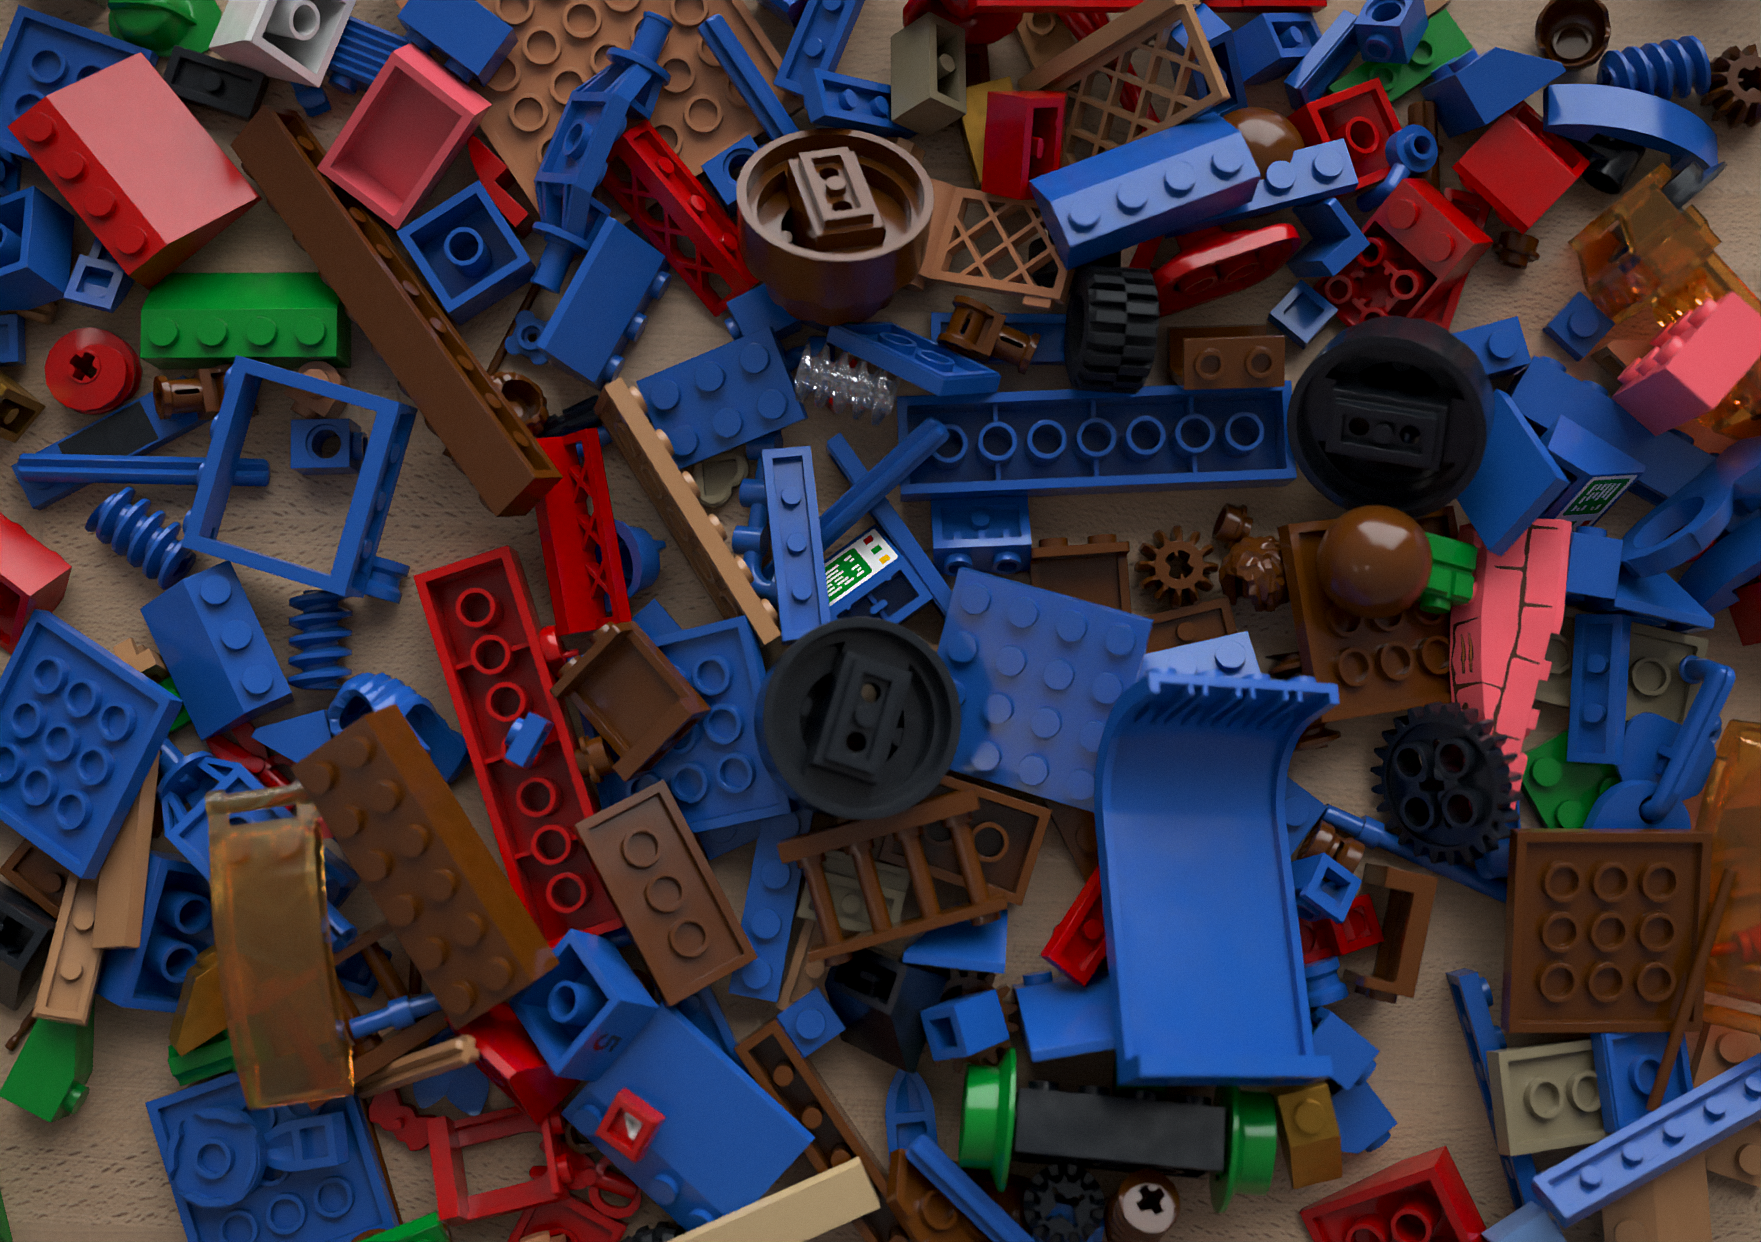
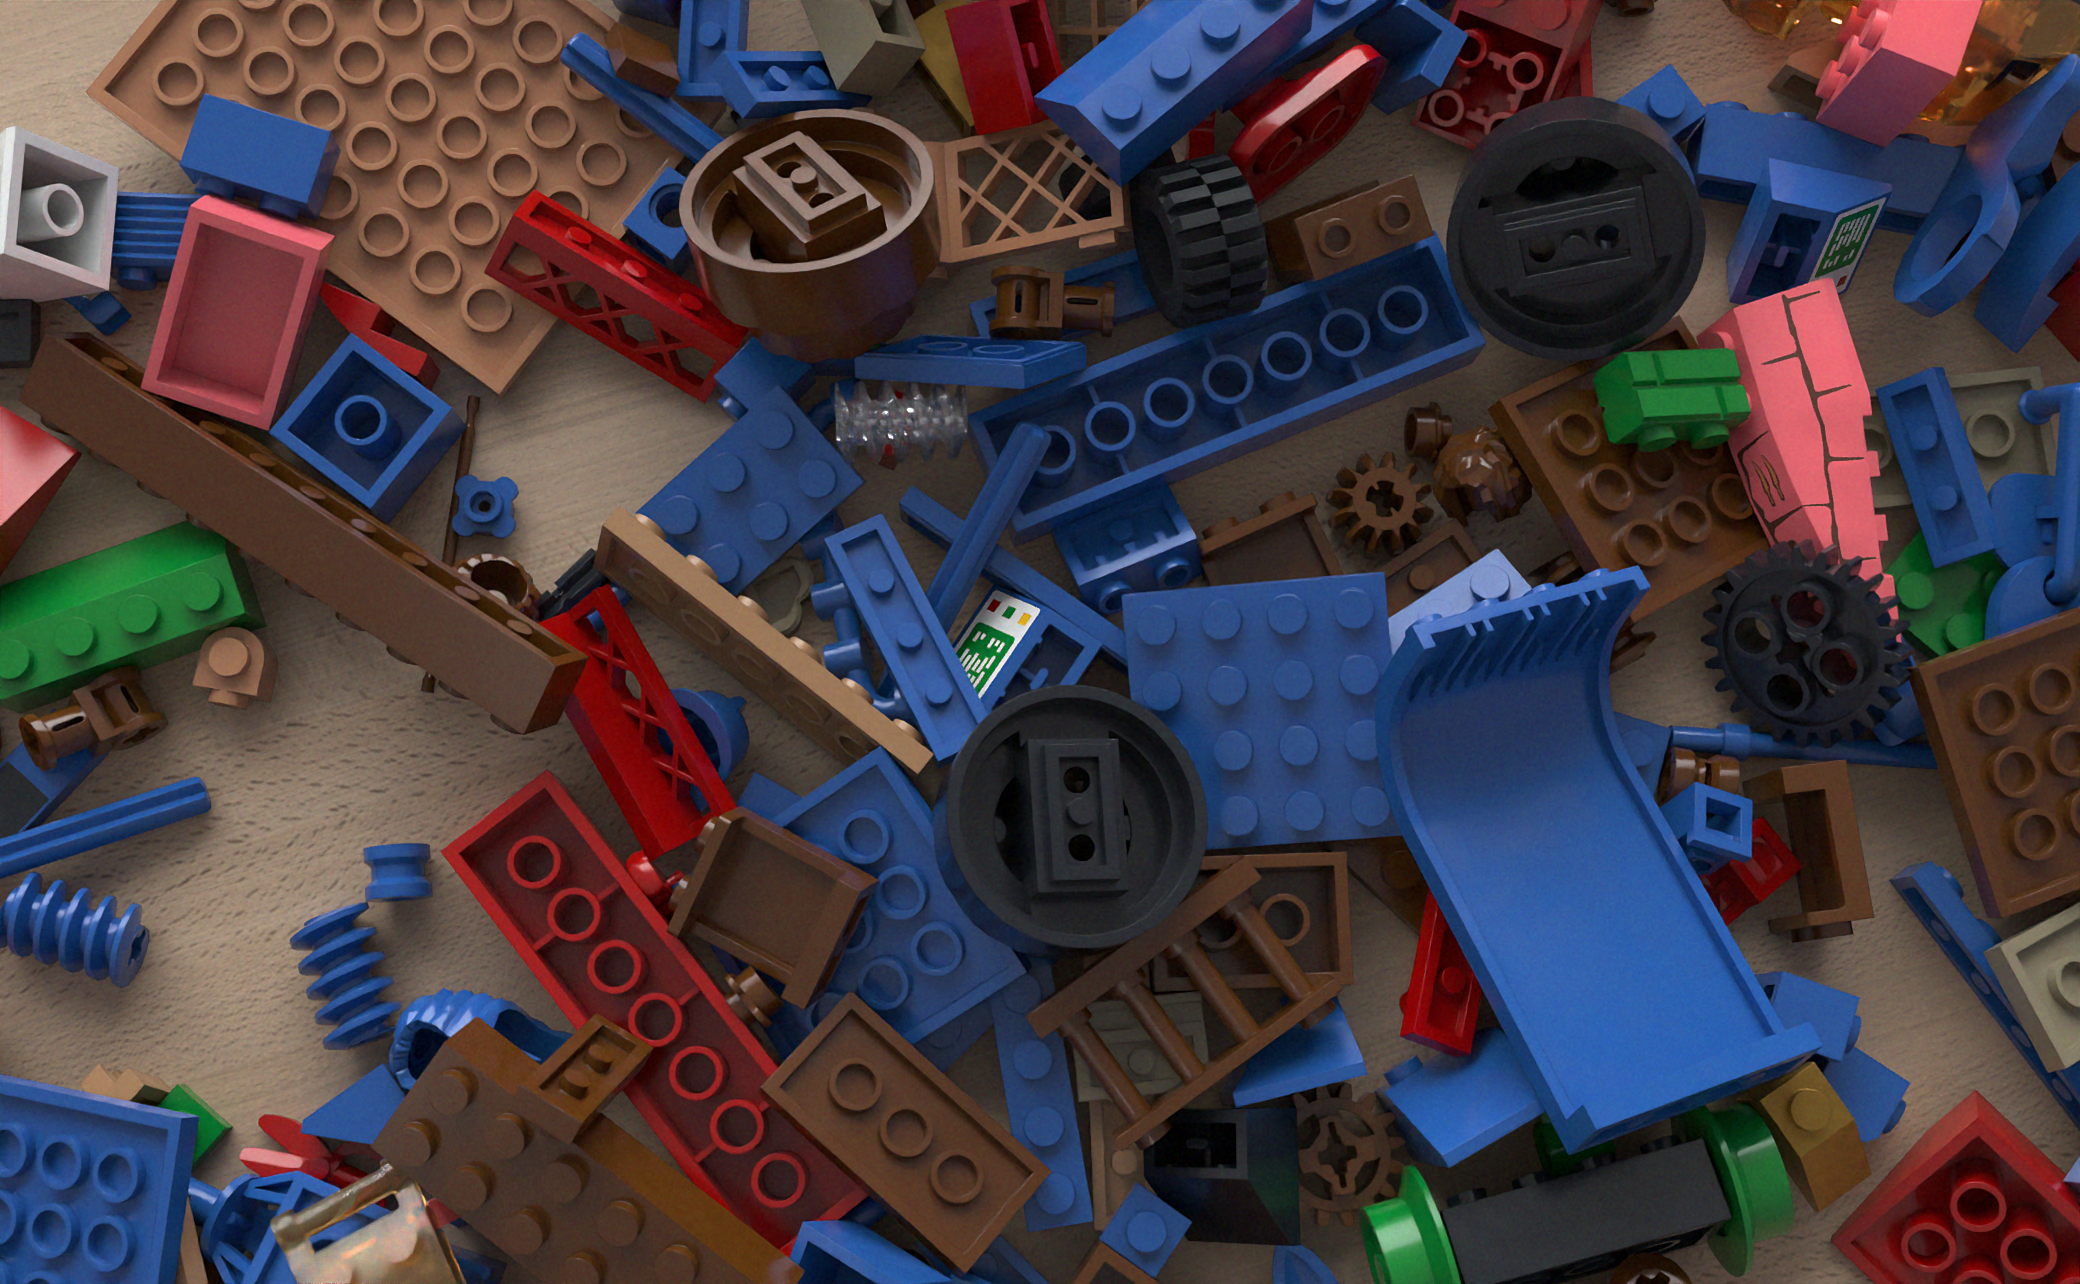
camera: 30 degrees left, 5 degrees down
(216, 651) = (217, 1040): blue slope -> none
(307, 444) = (244, 727): blue brick -> none
(371, 495) = (351, 772): blue window -> none
(450, 774) = (580, 1079): none -> reddish brown plate
(527, 739) = (660, 1001): blue plate -> none
(582, 143) = (466, 247): blue plate -> none
(605, 306) = (563, 434): blue slope -> none
(756, 50) = (642, 60): none -> reddish brown tile
(964, 1025) = (1341, 1158): blue brick -> none
(1302, 314) = (1414, 149): blue plate -> none
(1323, 982) = (1755, 942): blue wheel -> none
(1374, 561) = (1621, 406): reddish brown piece -> none
(1513, 480) = (1748, 258): blue tile -> none
(1578, 326) = (1740, 56): blue plate -> none
(1592, 567) = (1878, 323): blue brick -> none
(1656, 603) = (1958, 339): blue slope -> none

